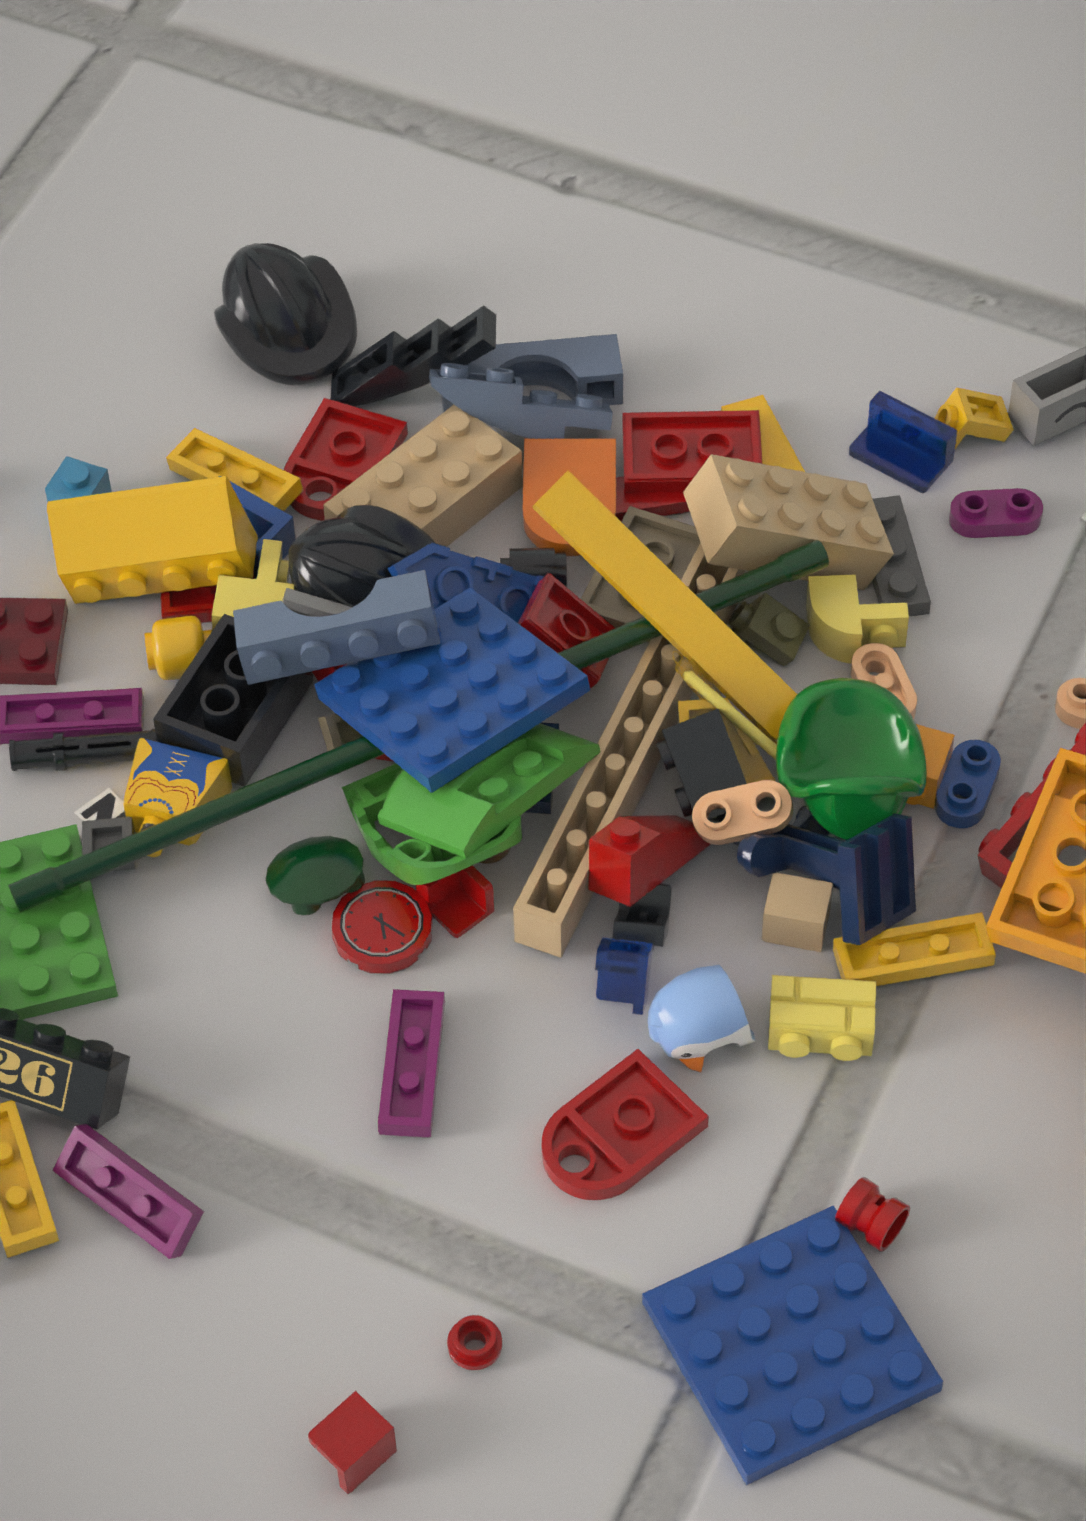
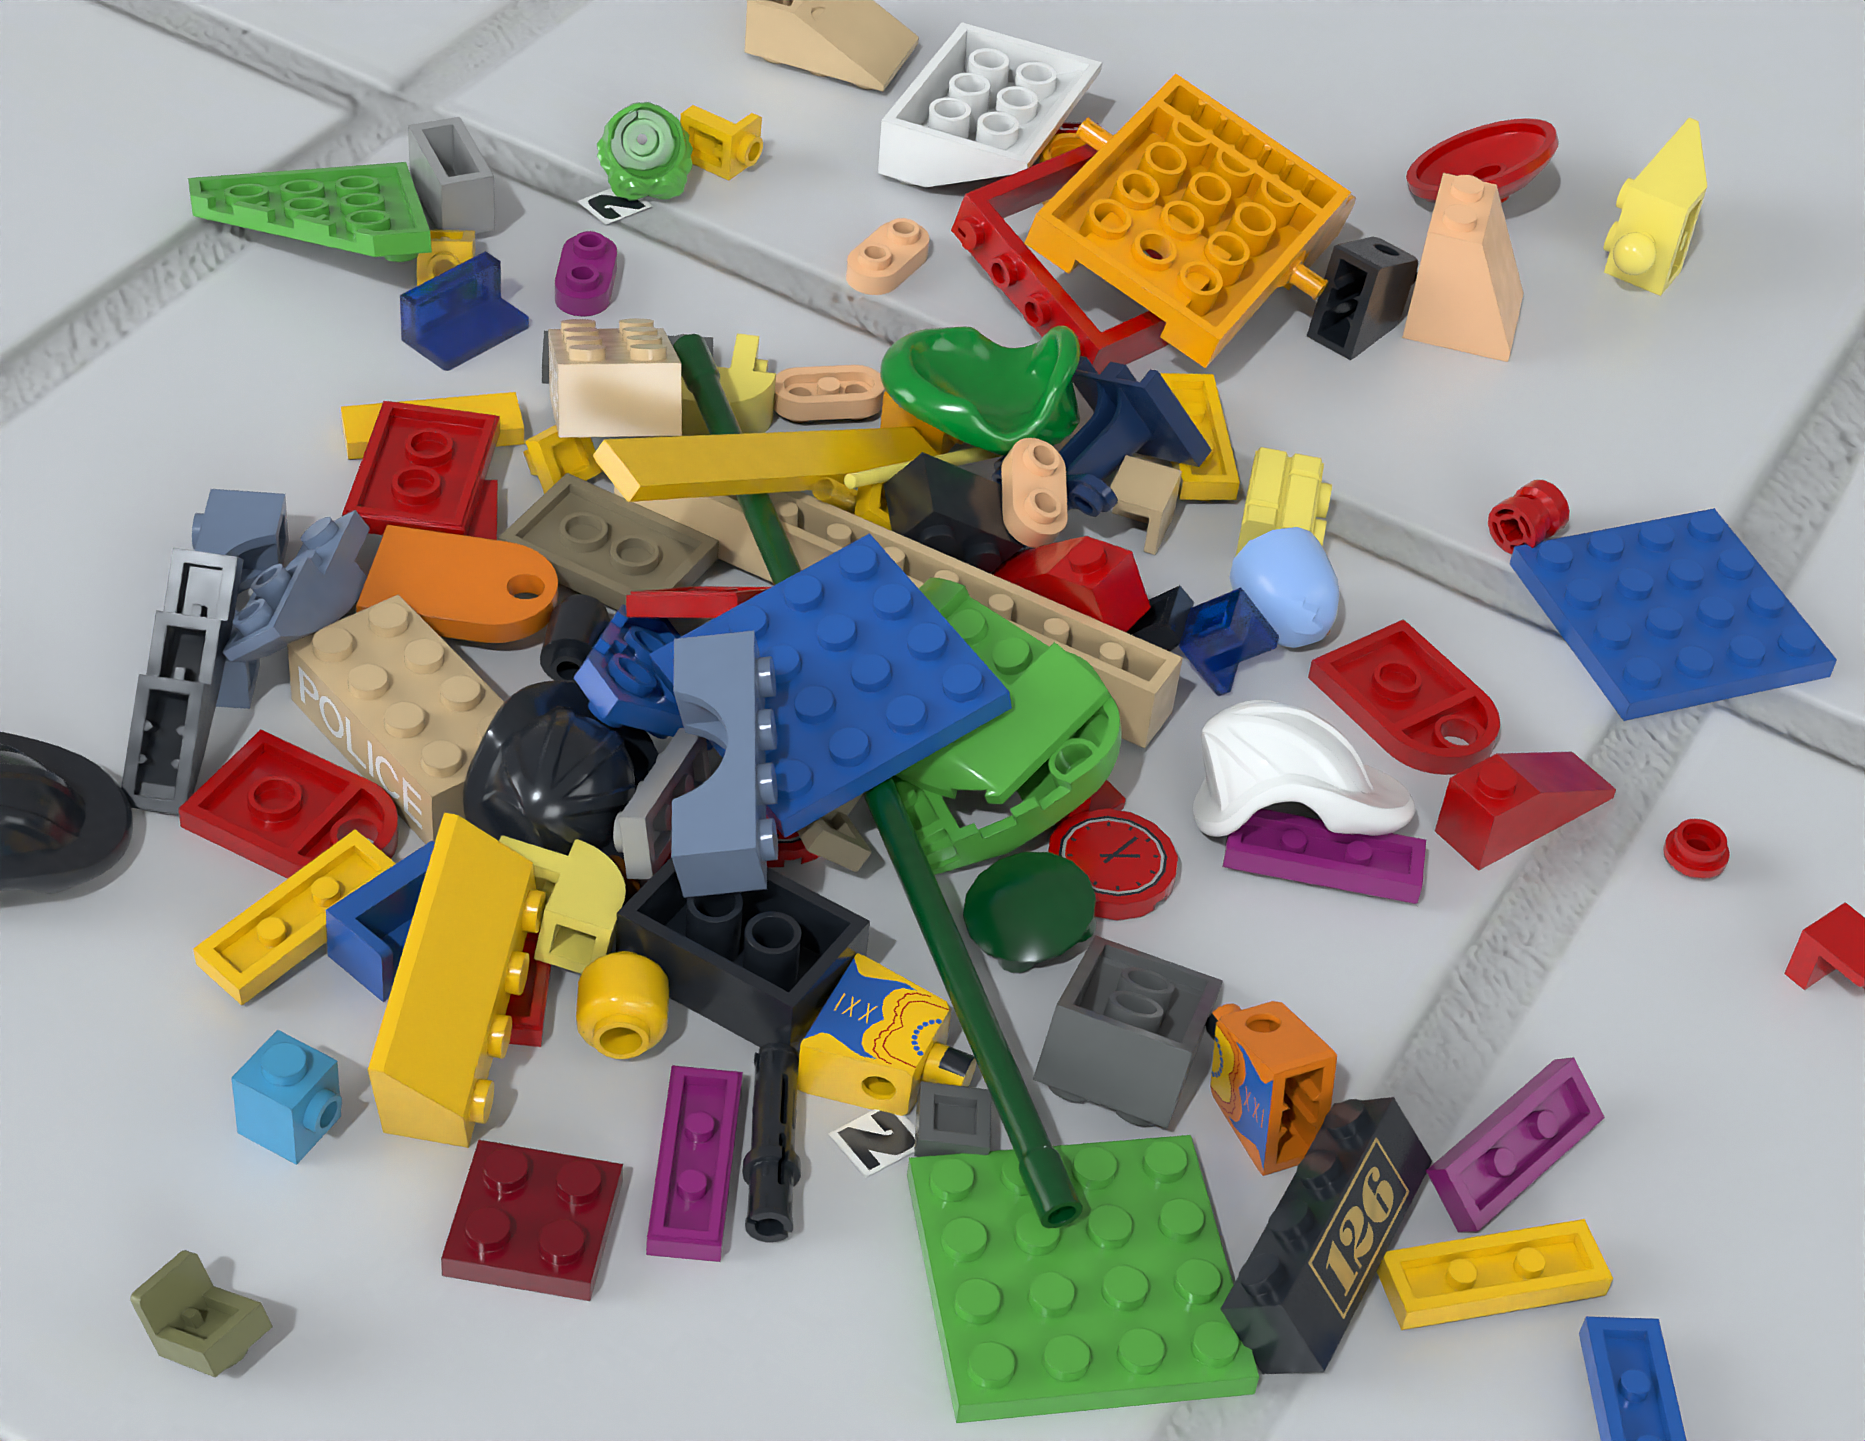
camera: 90 degrees left, 10 degrees down
(156, 1016) = (1270, 1081): none -> orange torso
(209, 940) = (1127, 1032): none -> dark grey slope
(466, 1029) = (1284, 753): none -> white piece
(503, 1206) = (1516, 801): none -> red slope
(986, 329) = (343, 208): none -> bright green plate

